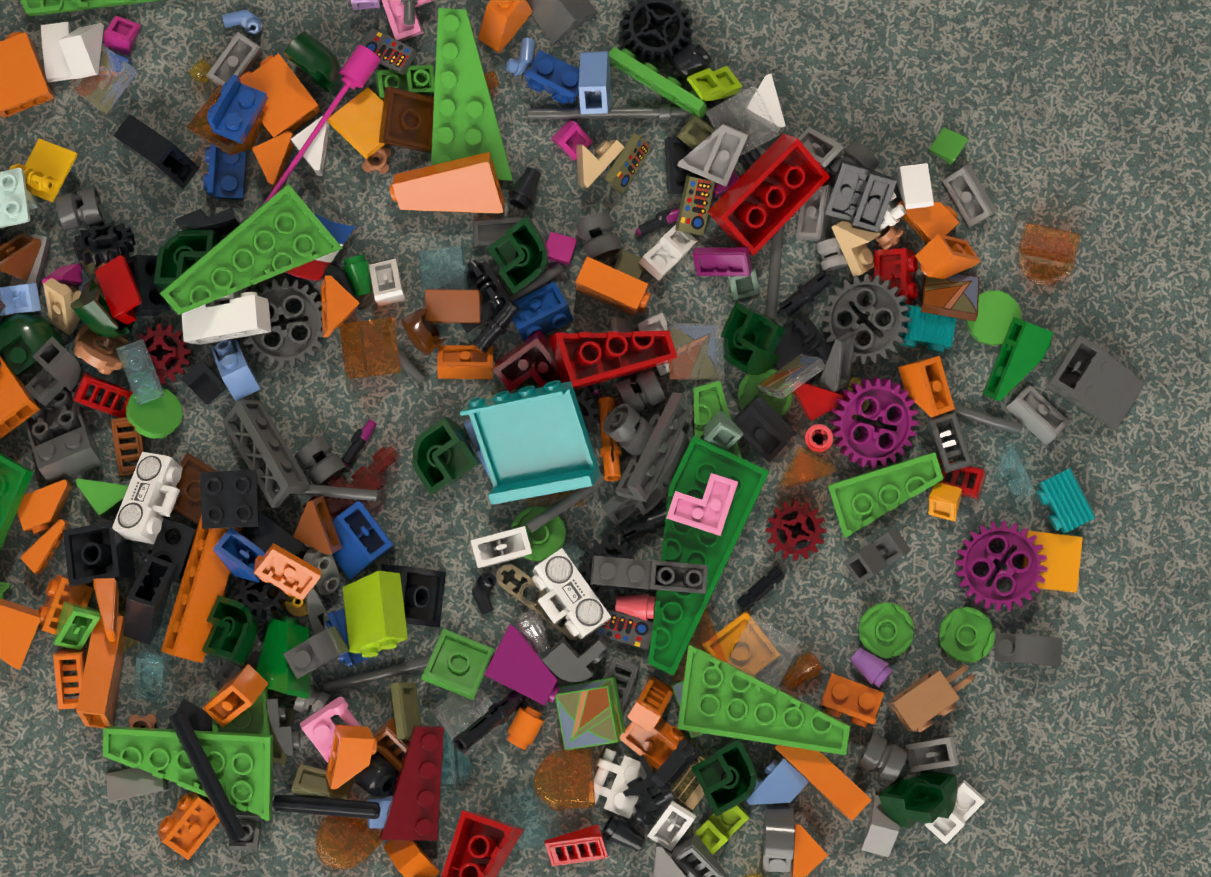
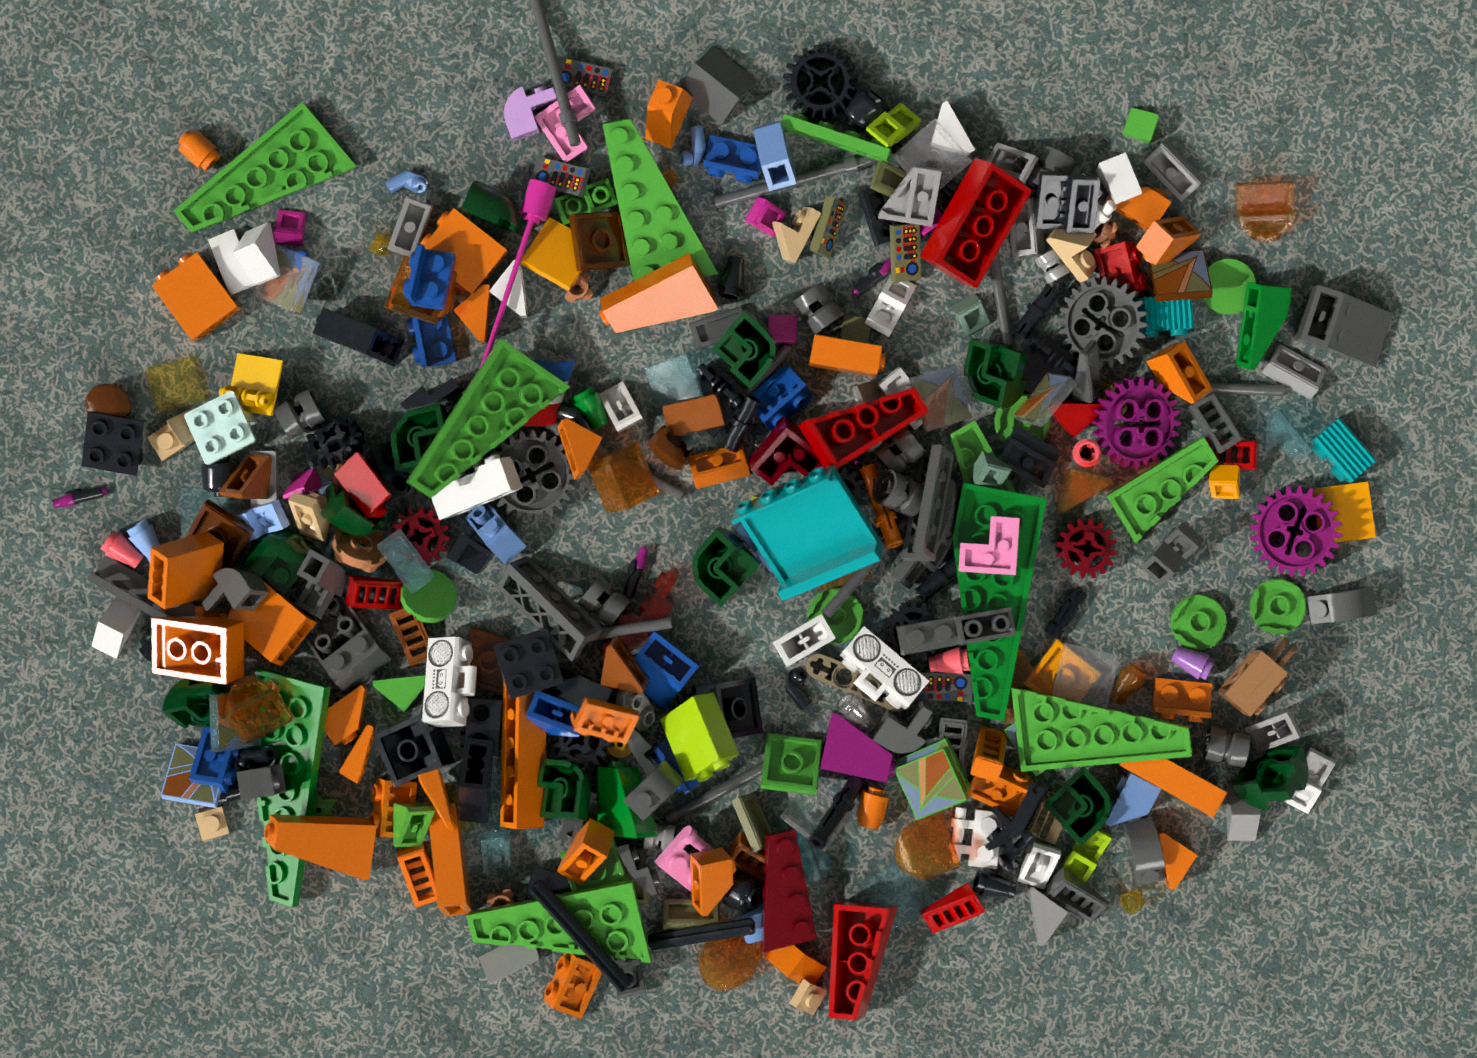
camera: 10 degrees left, 5 degrees up
(722, 261) = (947, 301): magenta plate -> none

